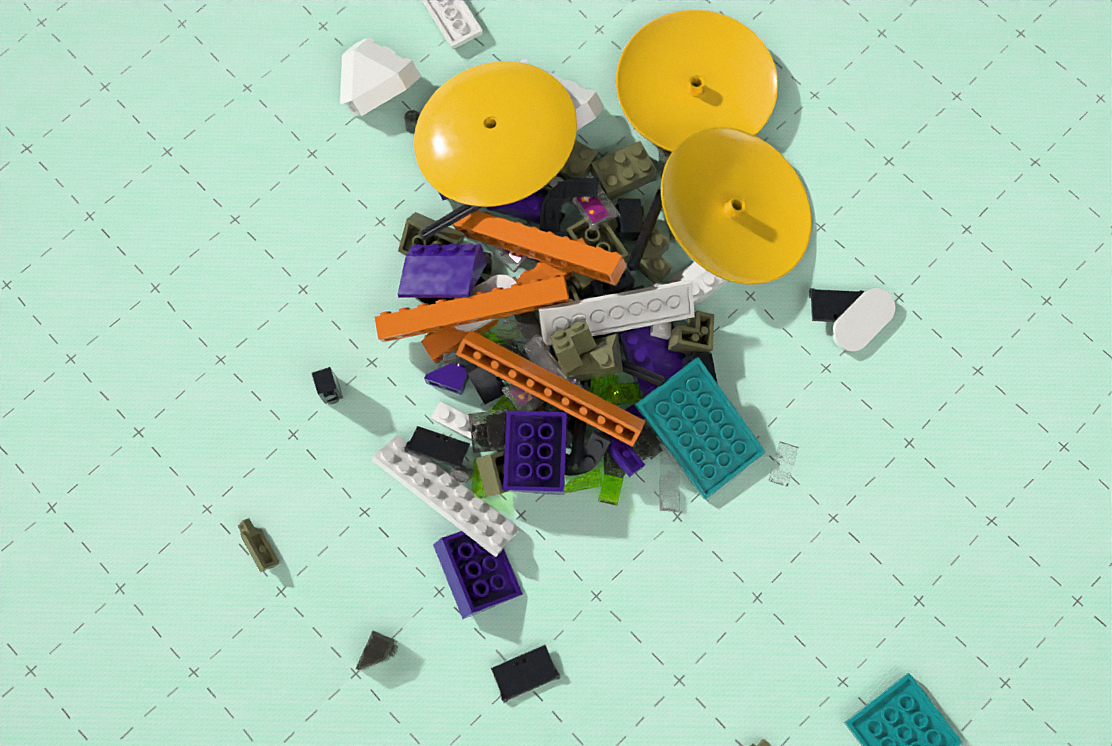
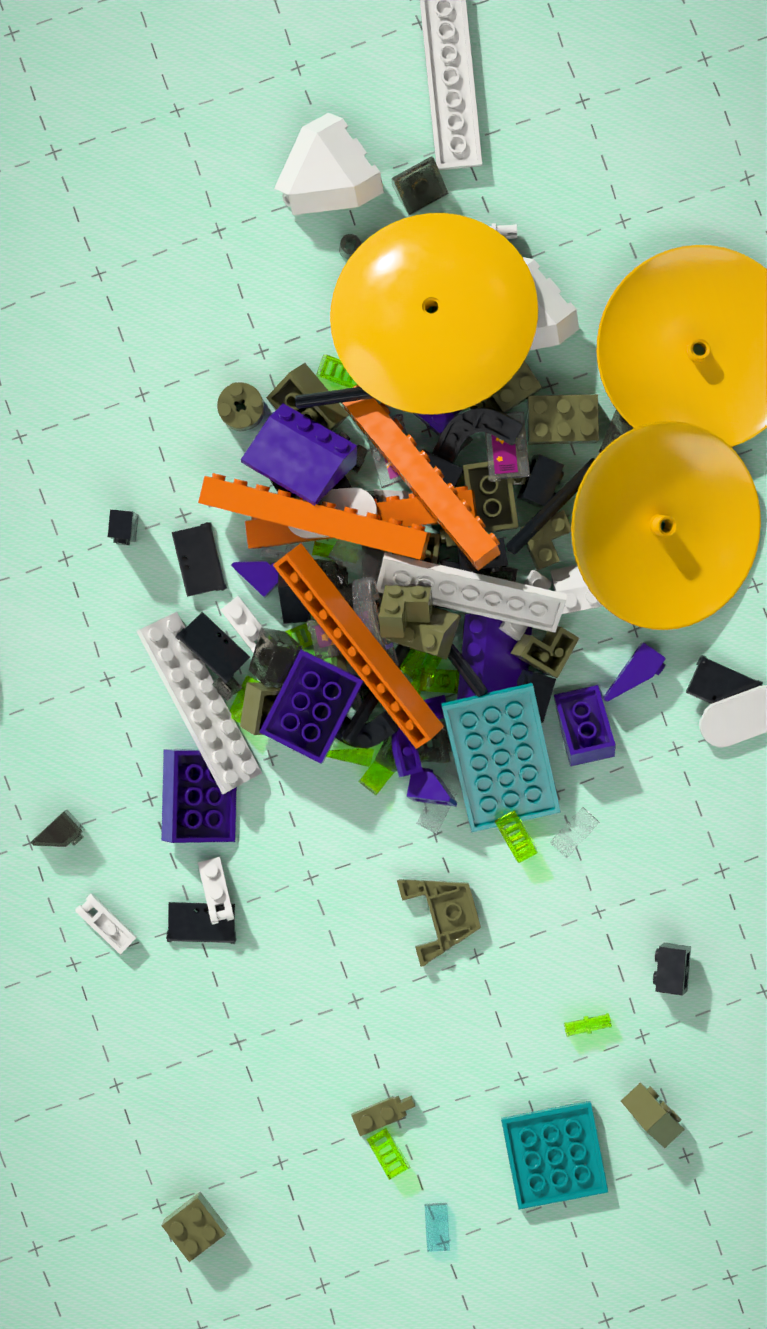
camera: 30 degrees right, 15 degrees up
(391, 263) = (236, 394): none -> olive brick
(403, 393) = (200, 563): none -> black door
(440, 203) = (335, 362): none -> clear neon green slope
(443, 61) = (419, 185): none -> clear smoke slope
(447, 711) = (106, 924): none -> white plate
(524, 639) = (215, 889): none -> white plate
(656, 479) = (429, 788): none -> dark purple slope
(720, 569) = (451, 913): none -> olive wing
(751, 380) = (584, 725): none -> dark purple slope
(755, 494) = (524, 848): none -> clear neon green slope
(769, 318) = (639, 668): none -> dark purple slope
(872, 611) = (587, 1025): none -> clear neon green pin
(914, 532) = (672, 968): none -> black brick
(963, 657) = (653, 1116): none -> olive brick

